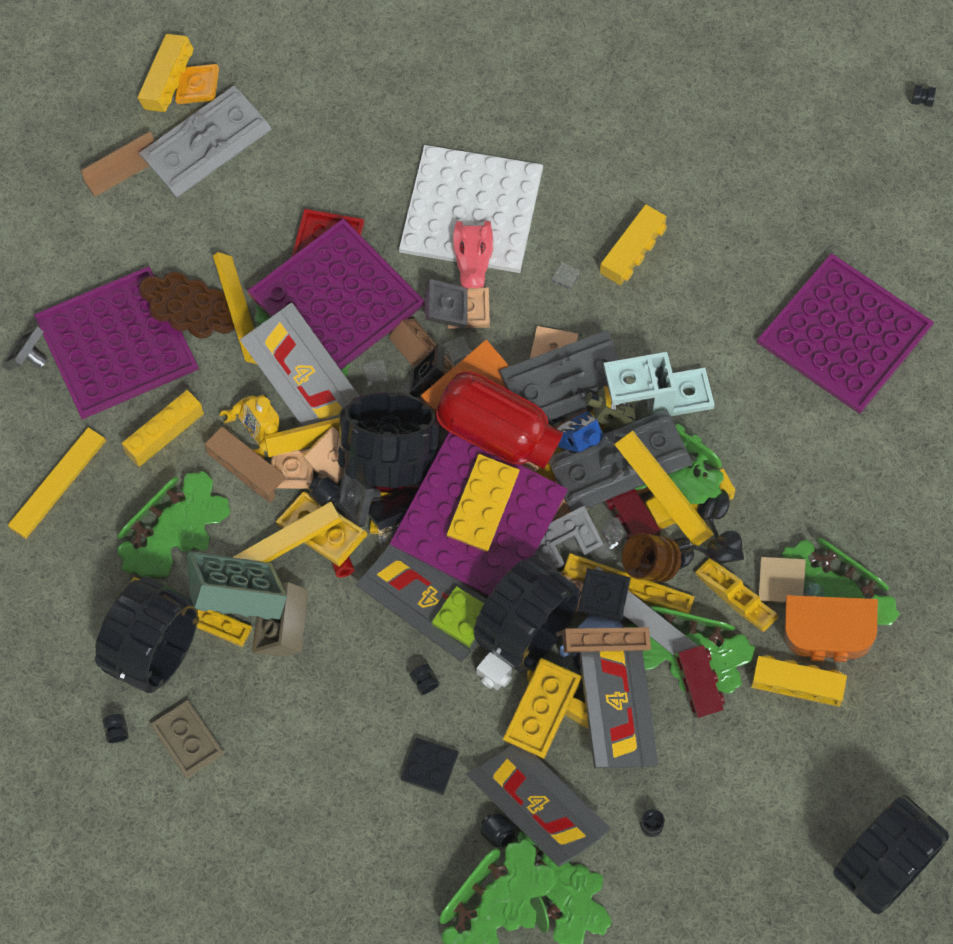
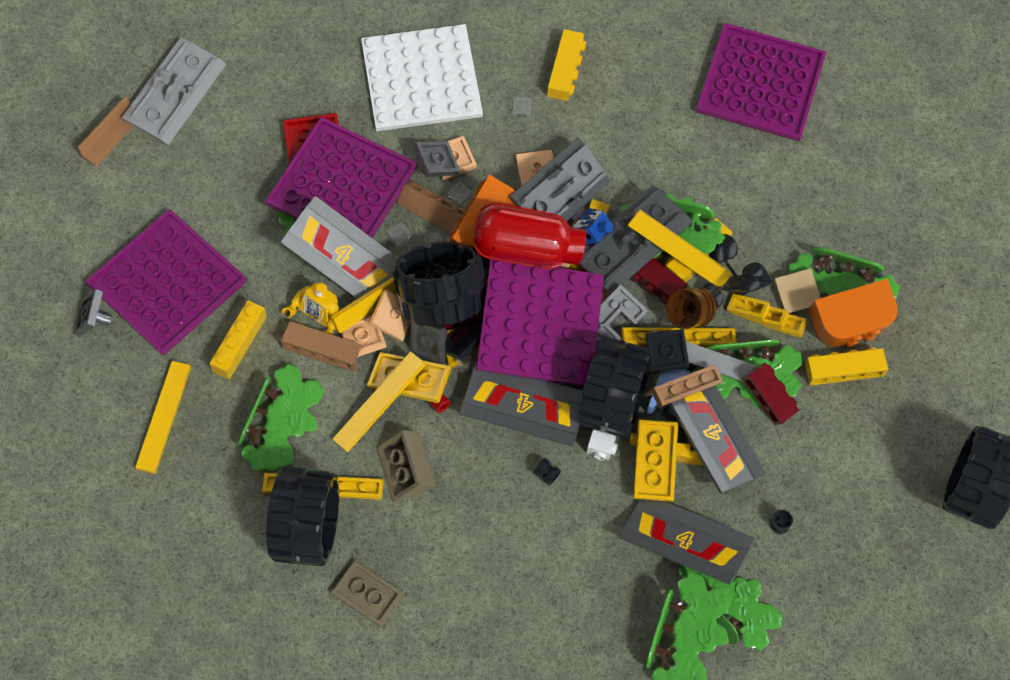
camera: 25 degrees left, 0 degrees up
(115, 728) = (302, 606): black wheel -> none
(165, 73) = (117, 45): yellow brick -> none
(187, 304) = (217, 230): reddish brown plate -> none
(197, 84) = (147, 46): light orange plate -> none
(235, 299) = (259, 217): yellow tile -> none
(235, 586) = (361, 449): sand green slope -> none
(324, 490) = (399, 345): black head -> none
(427, 371) = (445, 218): black plate -> none
(429, 766) = (580, 542): black plate -> none
(459, 616) = (559, 408): lime plate -> none
(472, 250) = (440, 110): coral animal -> none
(483, 503) = (541, 308): yellow plate -> none
(497, 830) = (660, 573): black head -> none
(610, 415) = (608, 198): olive torso -> none
(614, 533) = (651, 299): clear plate -> none
(658, 385) = (638, 167): light aqua bracket -> none
(813, 589) = (826, 290): clear light blue plate -> none

